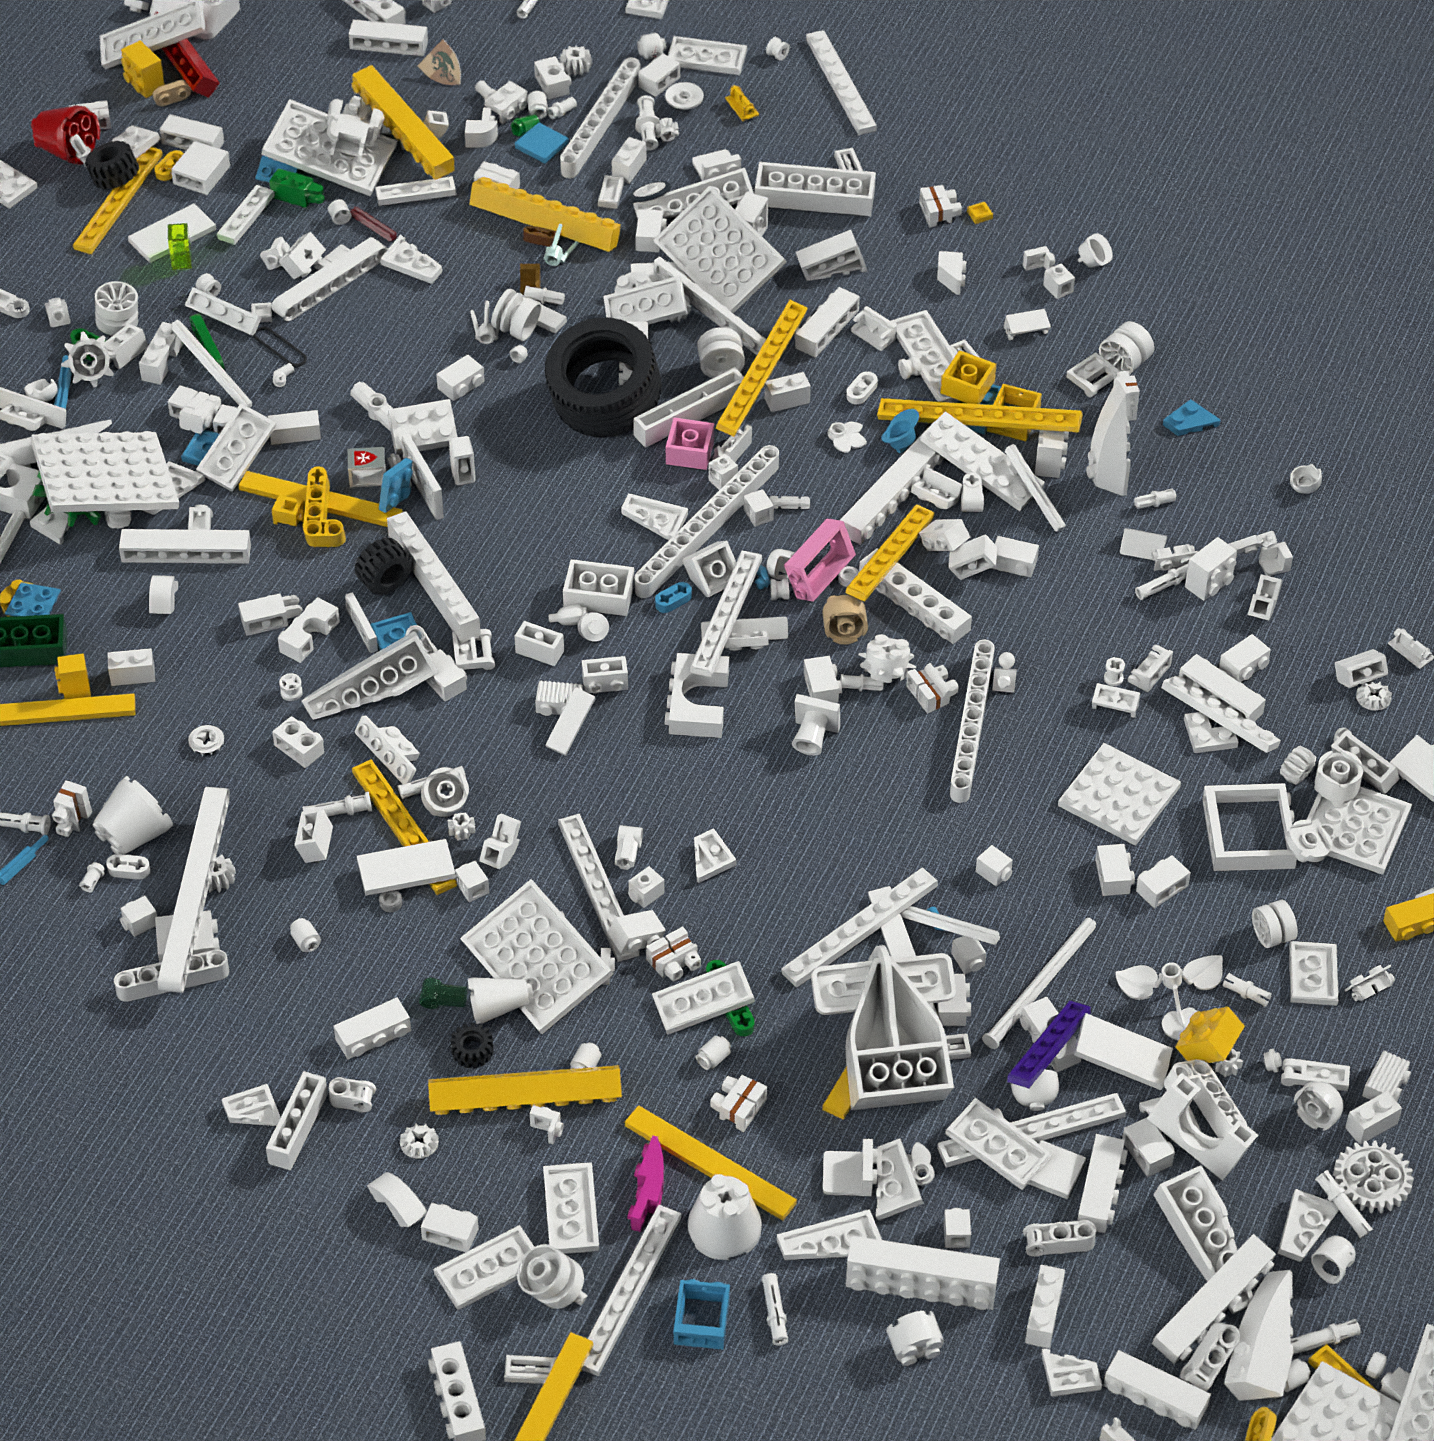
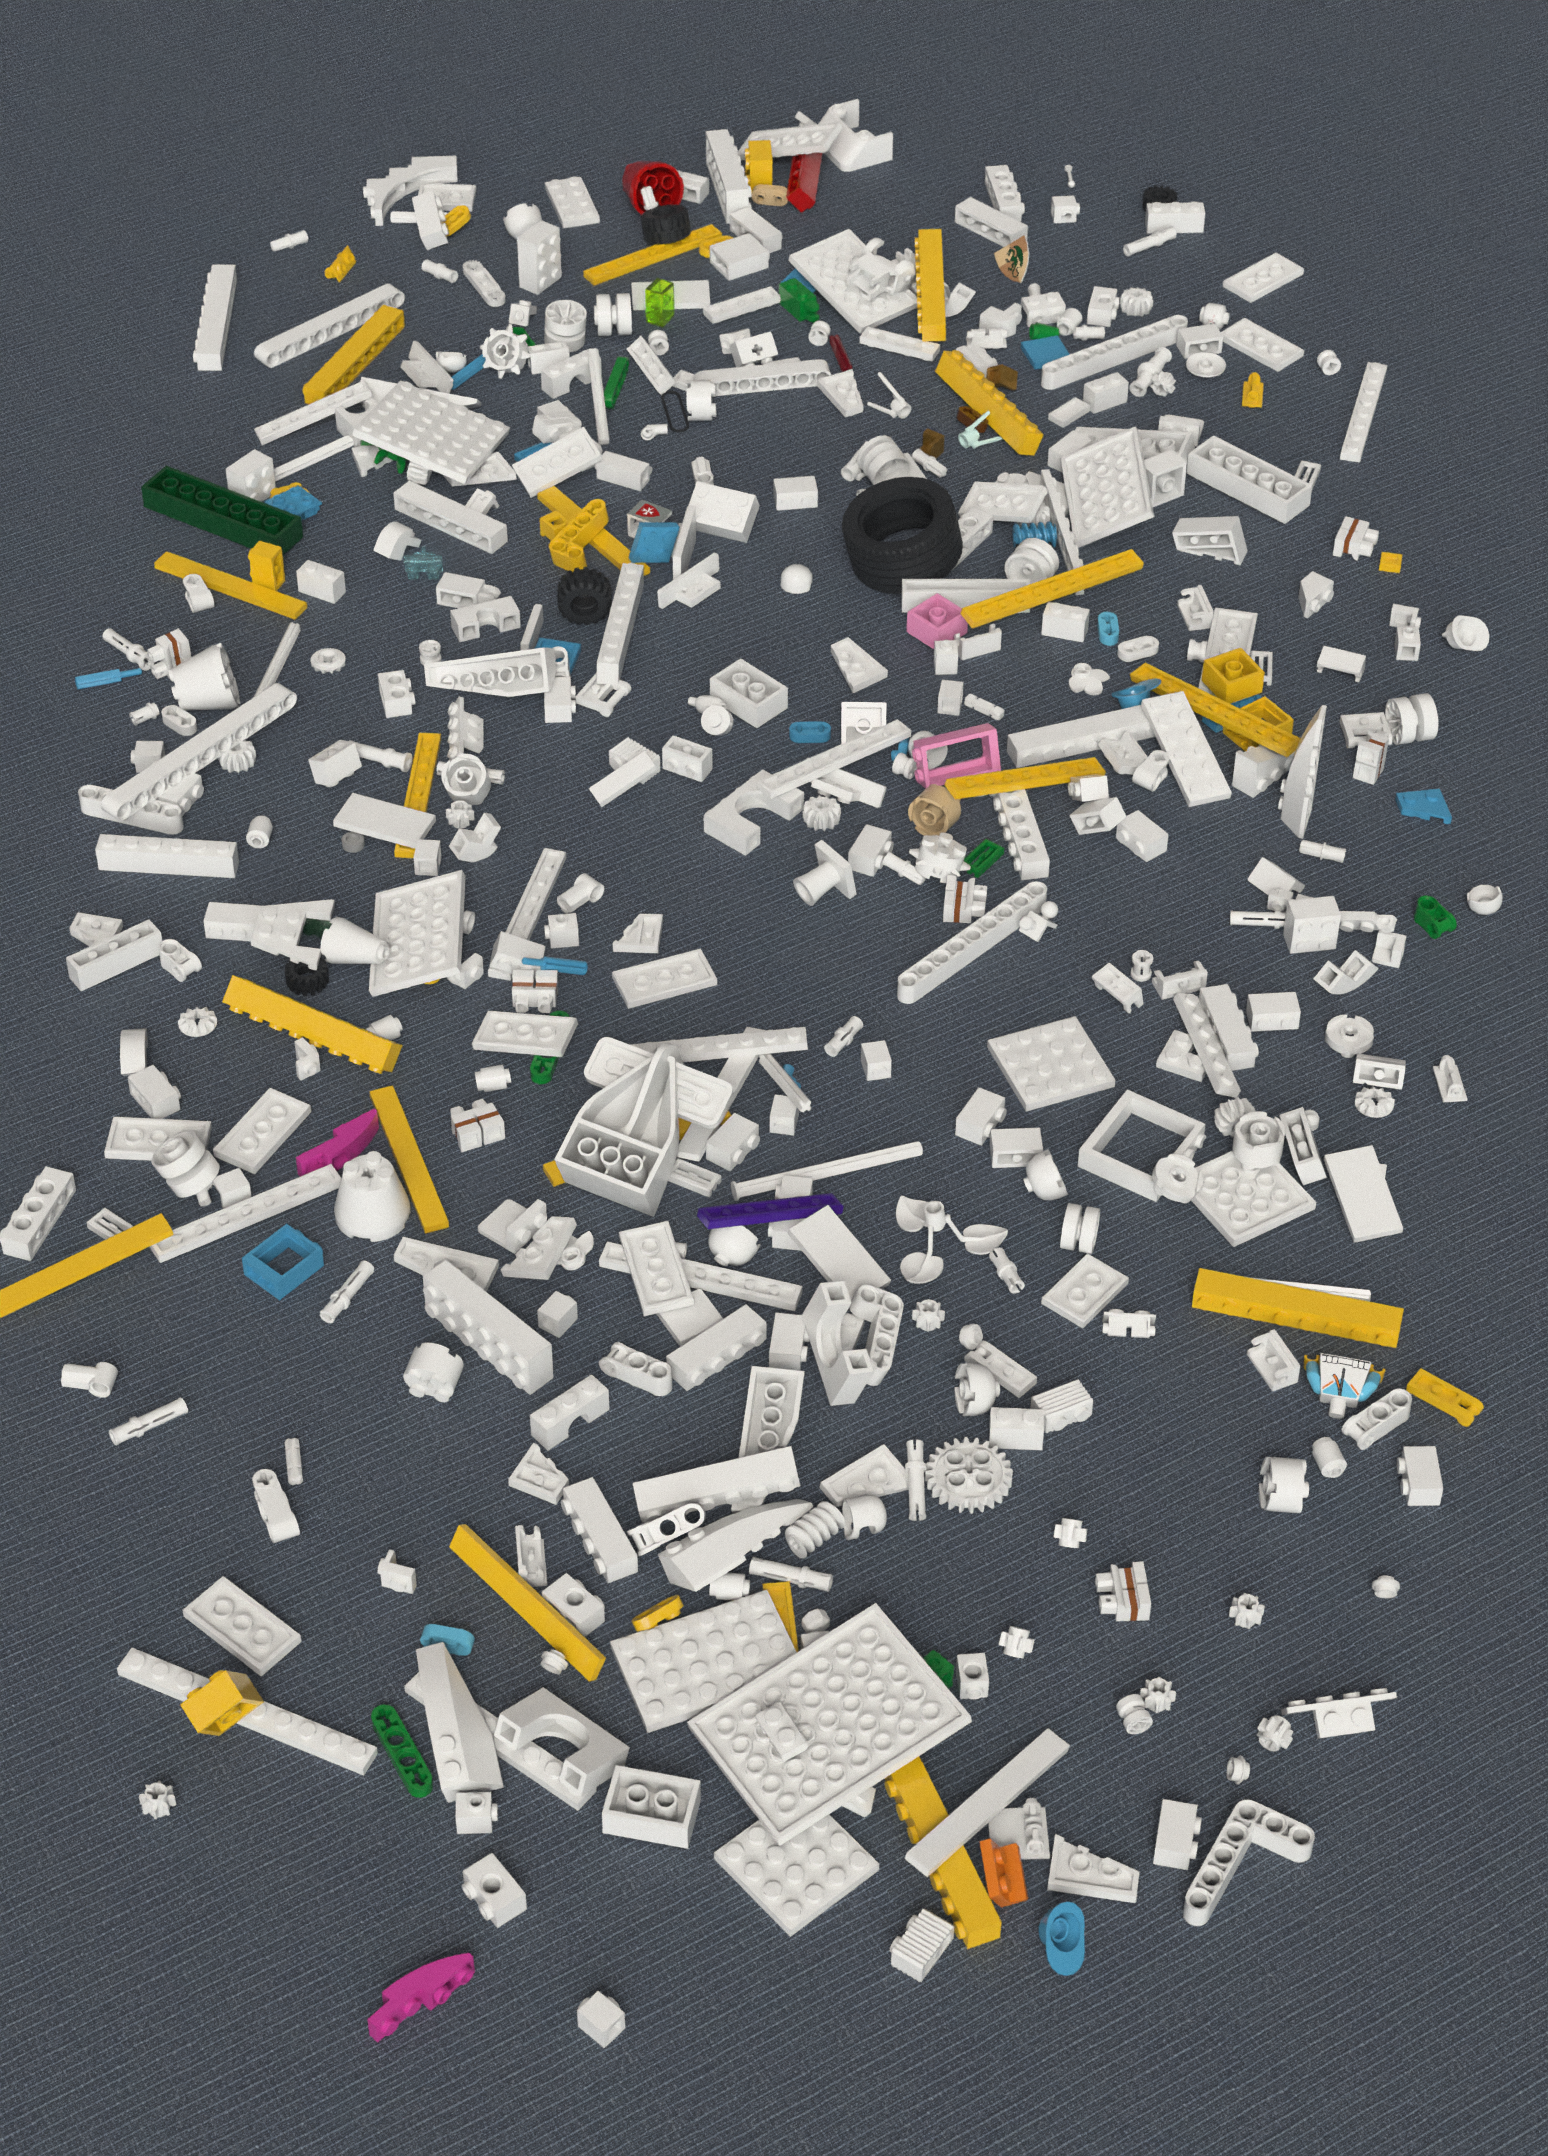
camera: 35 degrees right, 5 degrees down
(29, 735) = (197, 593): none -> white piece
(36, 250) = (539, 257): none -> white brick
(121, 90) = (726, 172): none -> white brick
(138, 139) = (706, 217): white plate -> none
(150, 276) = (608, 315): none -> white wheel
(164, 769) = (279, 657): none -> white axle
(204, 600) = (423, 562): none -> clear light blue hips
(248, 1002) = (167, 856): none -> white brick
(304, 326) = (700, 400): none -> white brick
(422, 1017) = (281, 927): none -> white wing
(458, 509) = (692, 585): none -> white bracket
(462, 460) = (730, 549): white brick -> none
(470, 250) = (899, 405): none -> white plant
(487, 153) = (994, 339): none -> white hinge
(532, 183) = (1002, 376): none -> pearl gold panel
(533, 459) = (796, 579): none -> white hair
(539, 643) = (657, 711): white brick -> none
(600, 1273) = (232, 1187): none -> white panel
(650, 191) = (1100, 423): wheel -> none
(677, 920) = (562, 965): none -> dark azure axle
(691, 323) = (1047, 533): none -> dark azure piece
(706, 521) = (895, 686): white beam -> none
(753, 667) = (821, 813): none -> white gear
(761, 884) = (664, 978): none -> white tile
(822, 379) = (1104, 629): none -> medium azure beam
(826, 322) = (1156, 585): white brick -> none
(908, 625) = (986, 859): none -> green tile
(948, 858) = (836, 1043): none -> white pin
(1035, 488) = (1212, 790): white axle -> none
(1210, 894) = (1044, 1177): none -> white cylinder
(1210, 1035) = (925, 1281): yellow brick -> none
(1280, 514) = (1432, 916): none -> green piece
(1309, 1290) = (814, 1527): none -> white piece
(1310, 658) = (1349, 1045): none -> white plate

